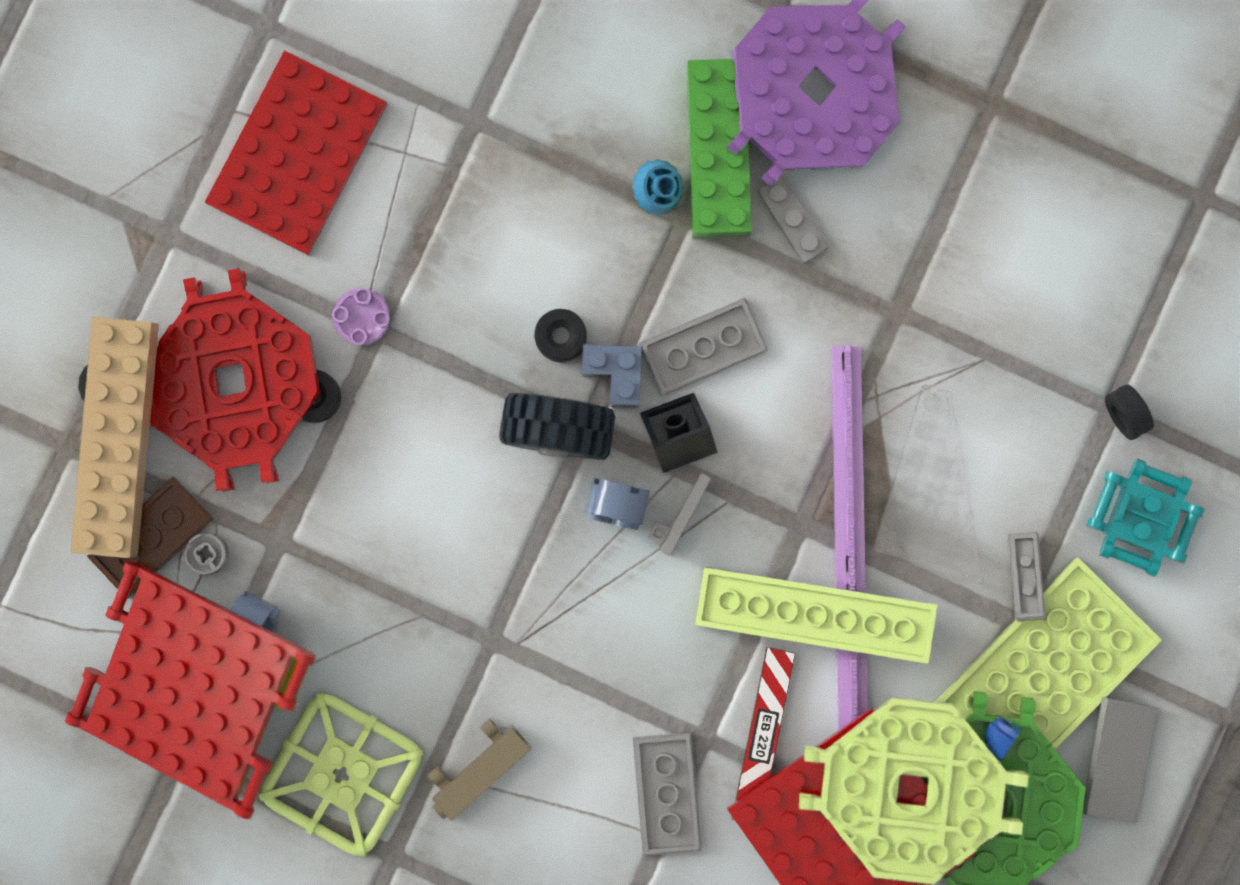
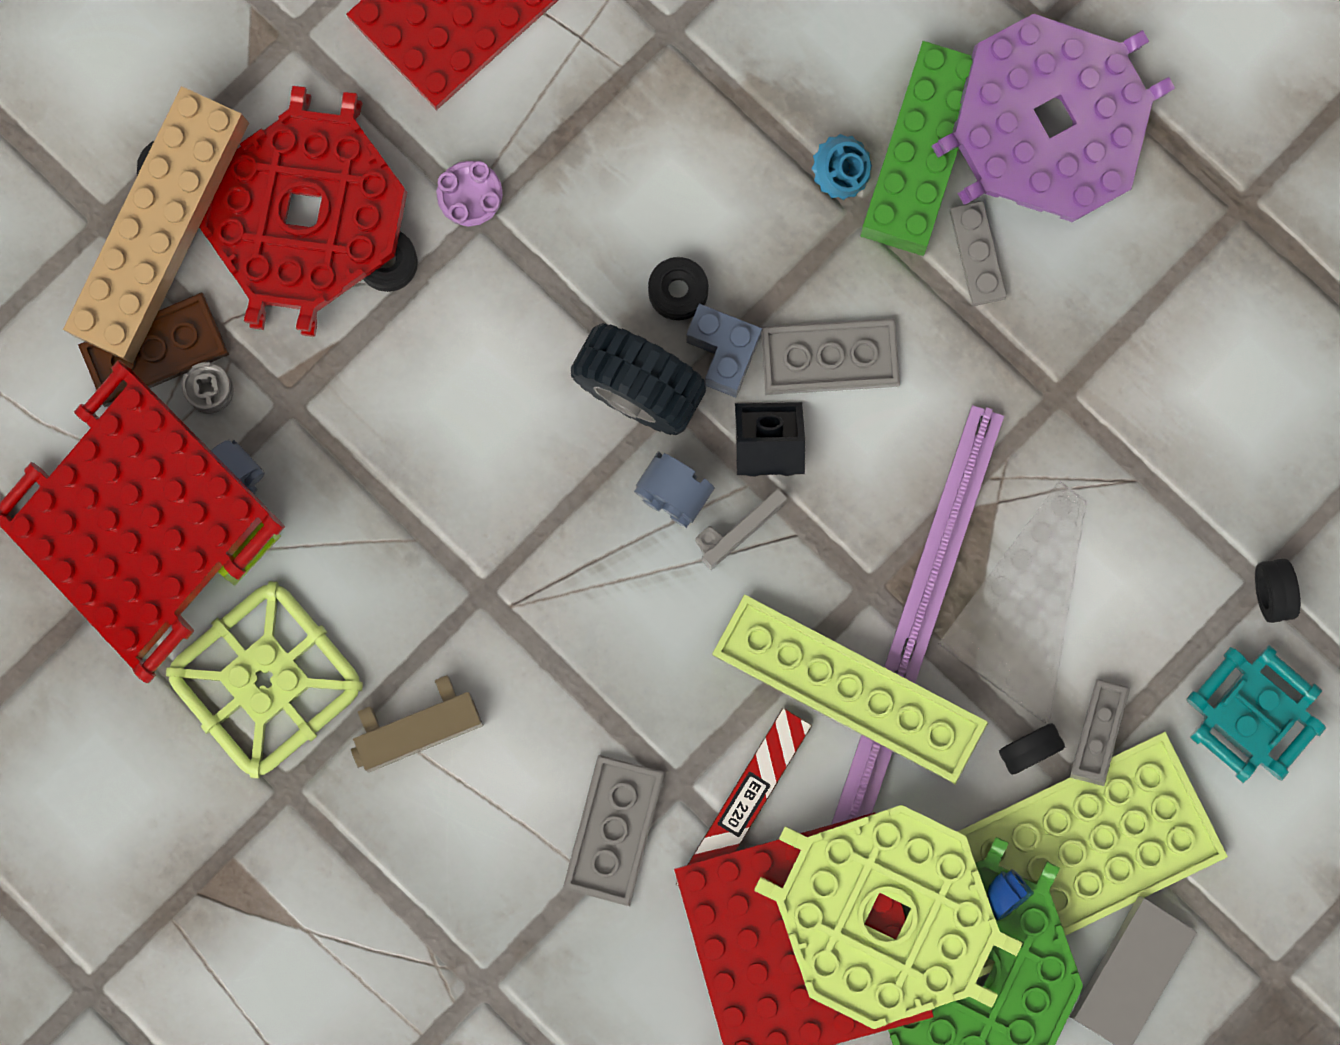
camera: 25 degrees right, 5 degrees down
(978, 610) = (1032, 749): none -> black tyre

